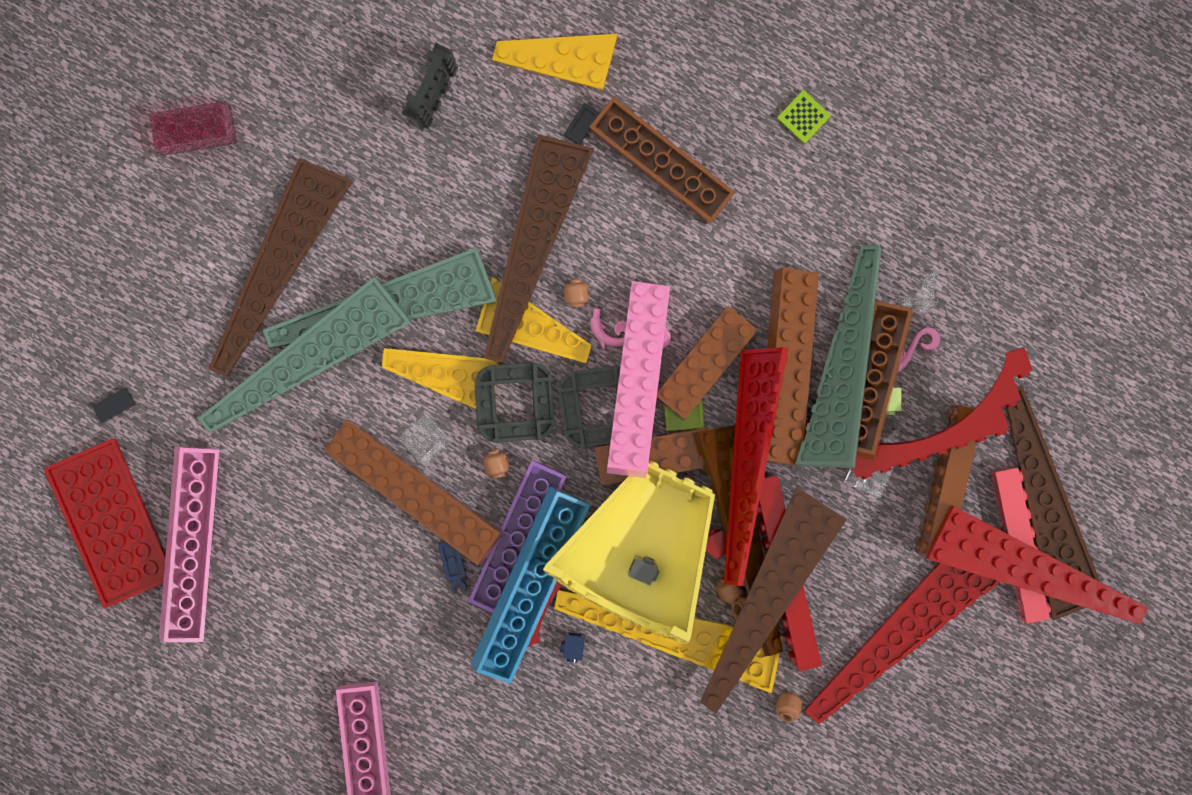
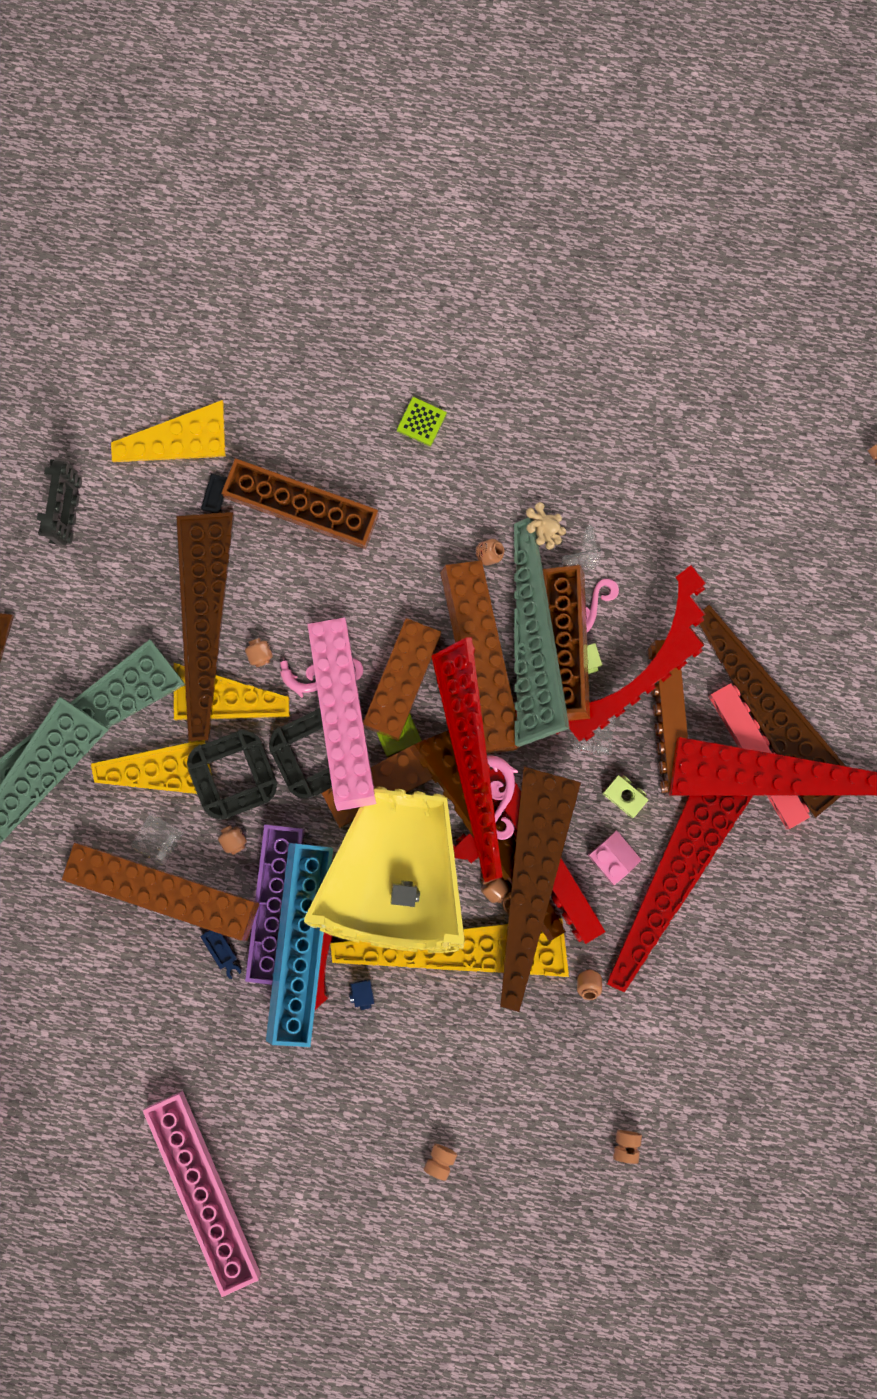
camera: 20 degrees left, 5 degrees down
(769, 509) = (505, 797): none -> bright pink plant
(829, 266) = (490, 551): none -> nougat head
(851, 596) = (614, 858): none -> bright pink slope
(882, 553) = (636, 802): none -> yellowish green brick
(892, 259) = (546, 526): none -> tan animal

